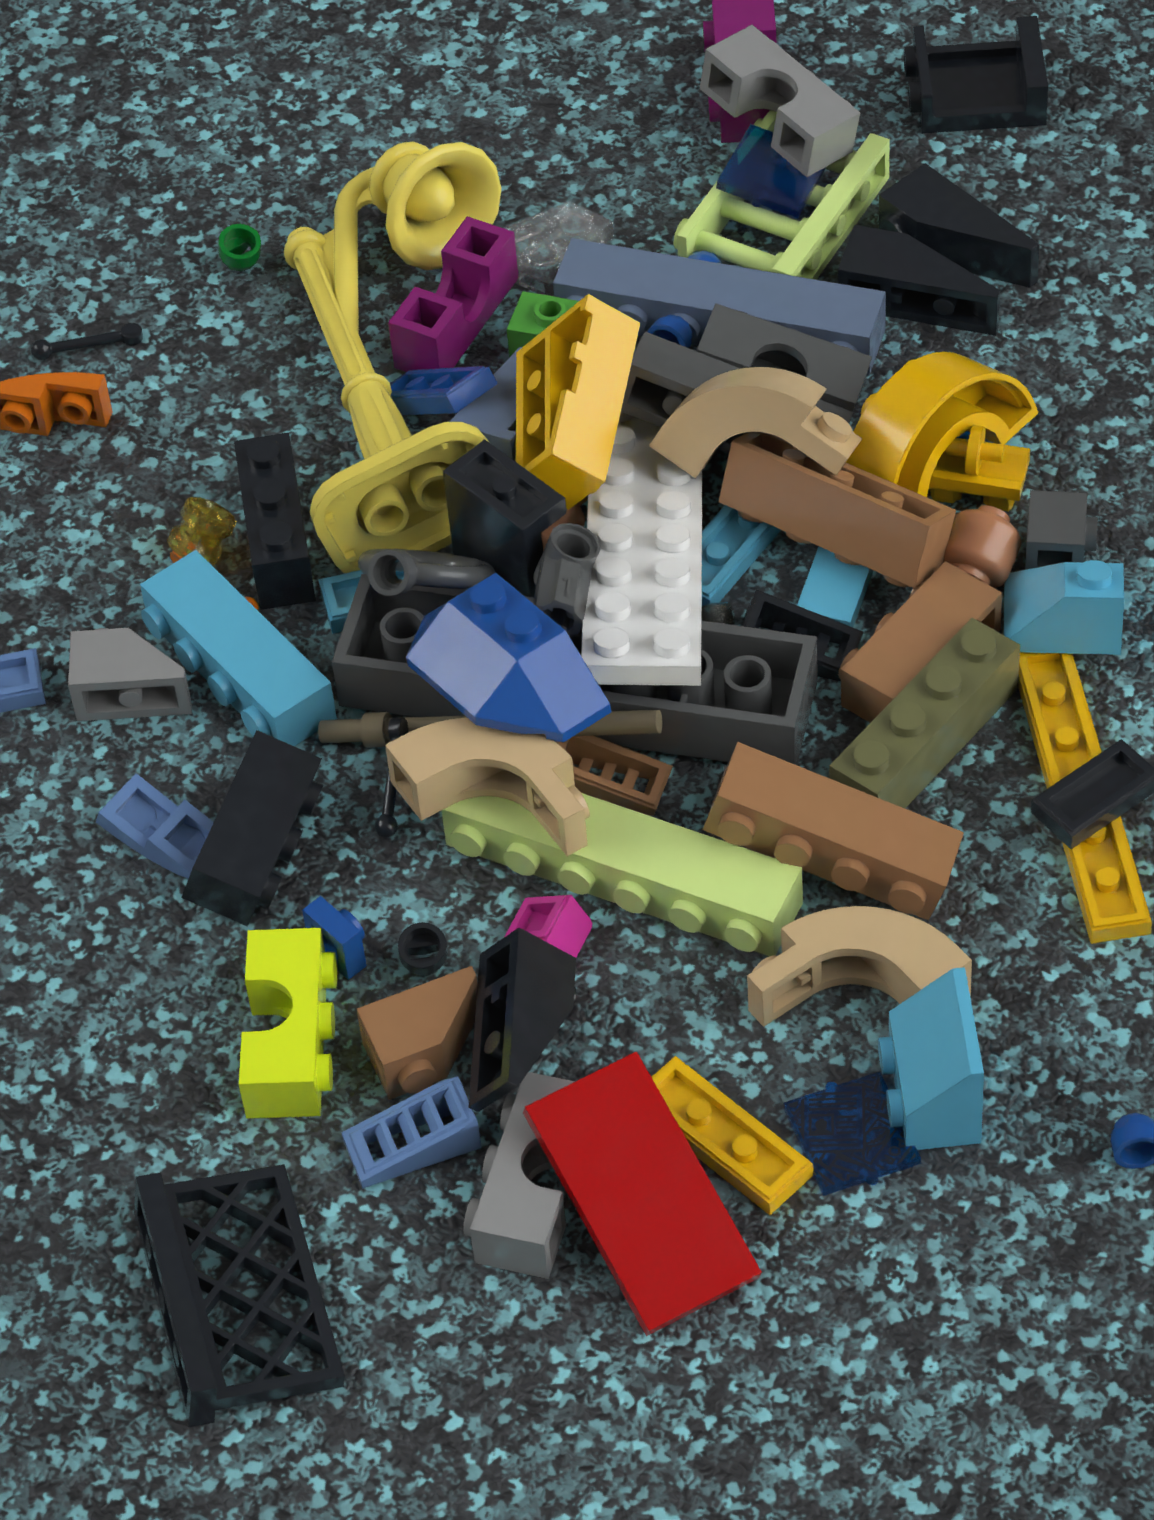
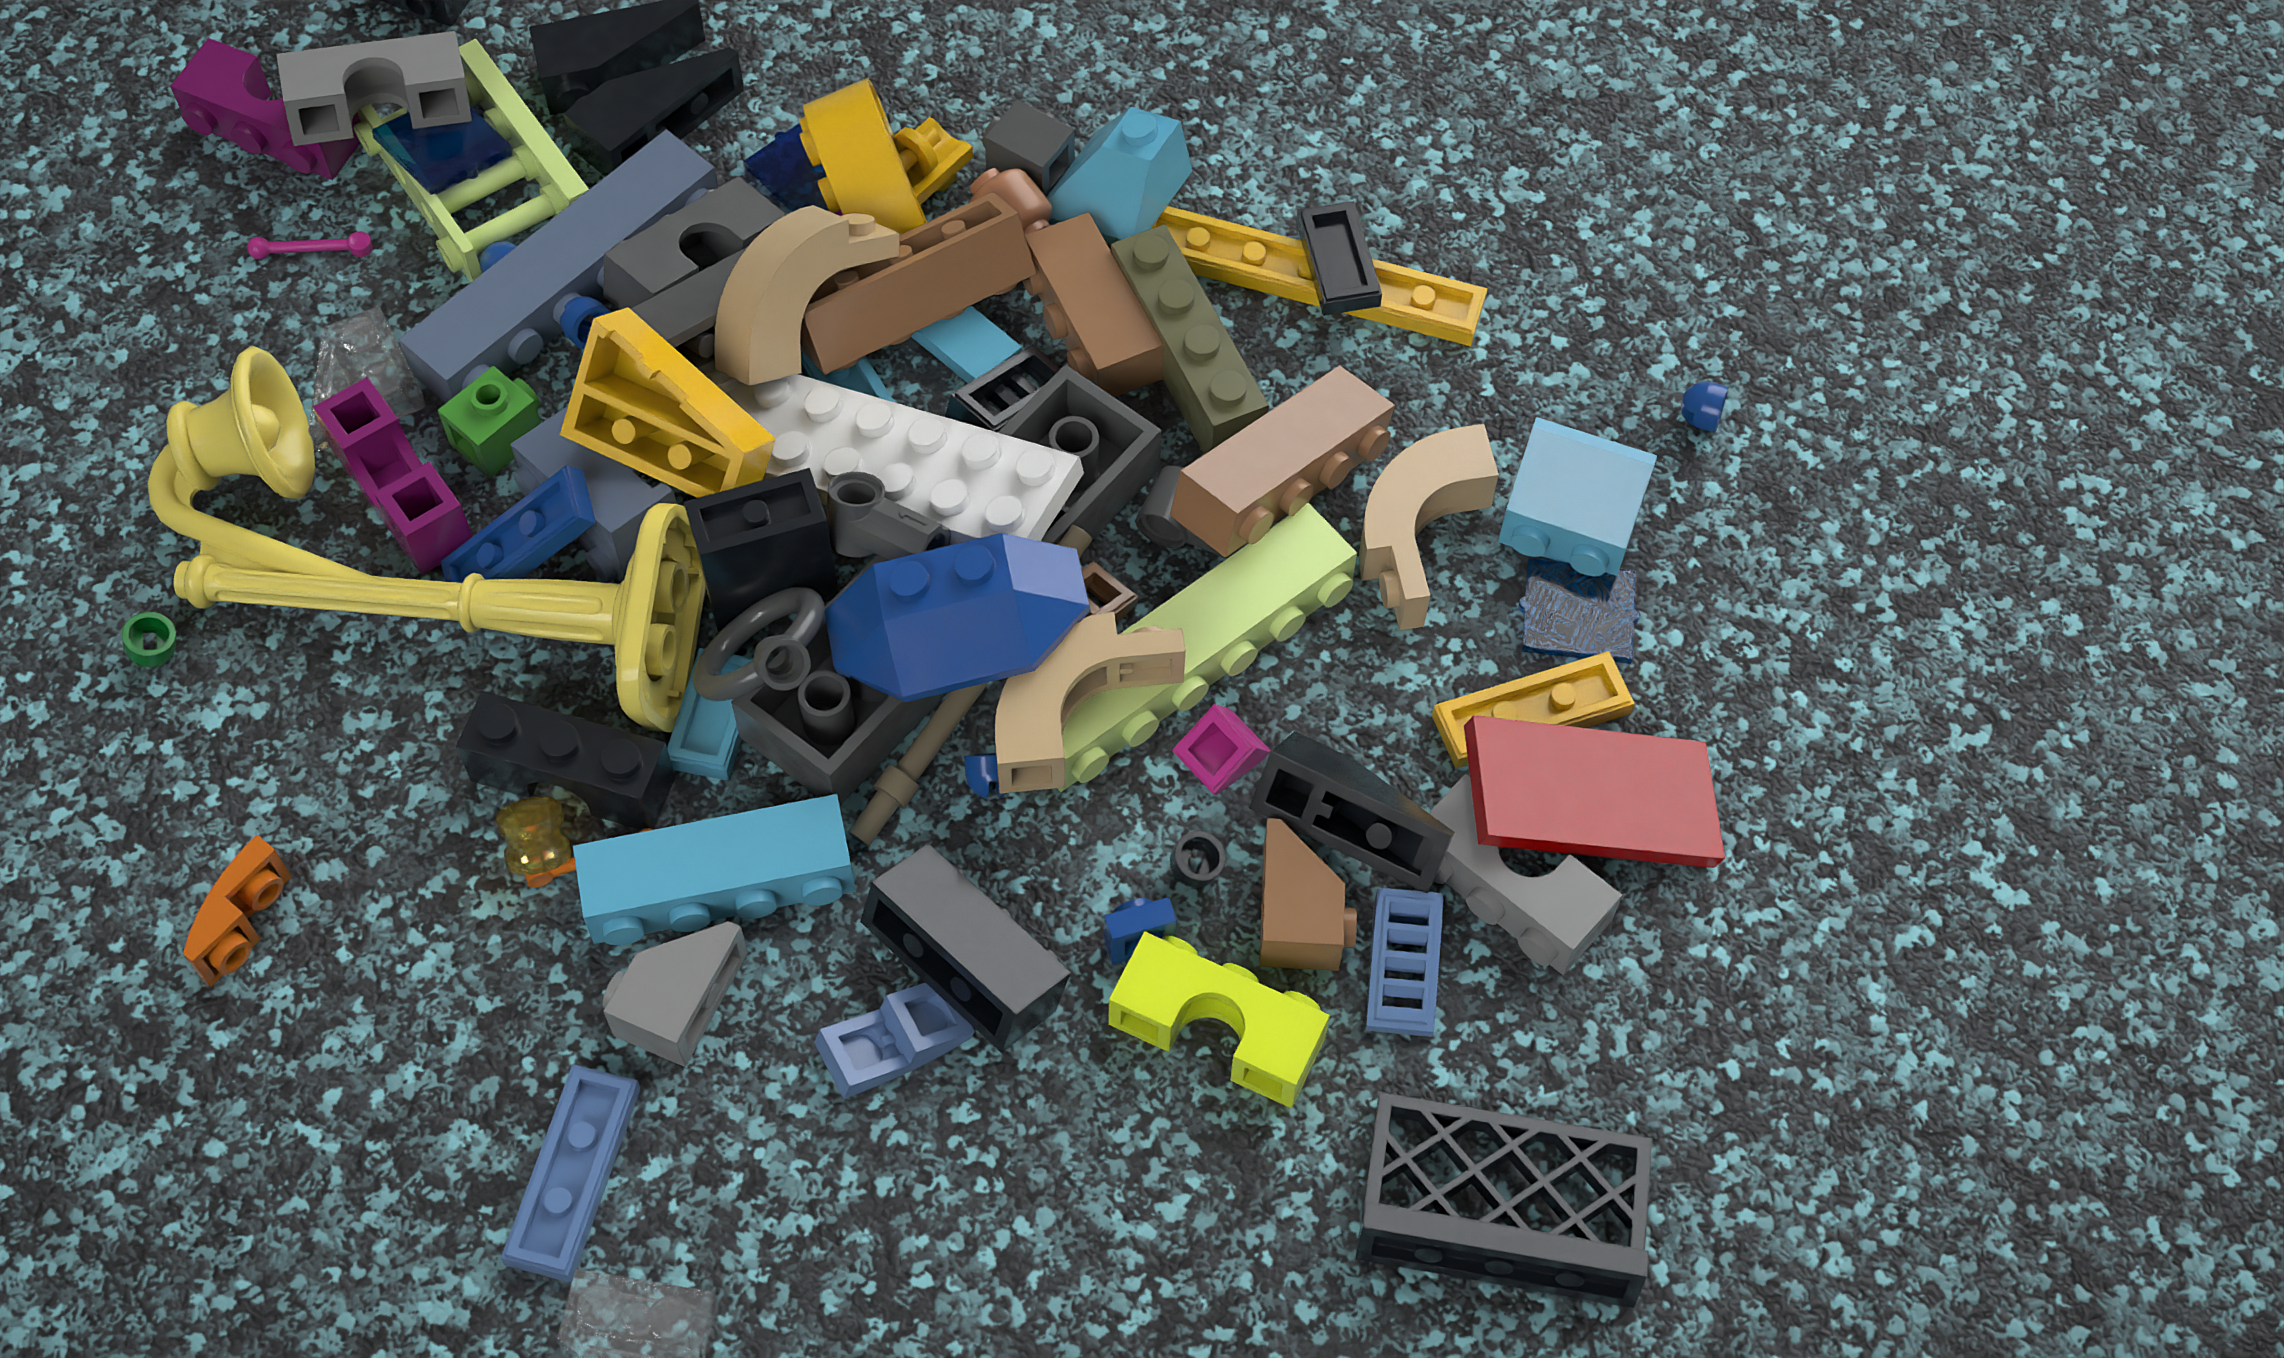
camera: 70 degrees left, 10 degrees up
(130, 334) = (179, 798): black hinge -> none
(386, 824) = (1013, 830): black hinge -> none
(668, 184) = (358, 243): none -> dark pink hinge

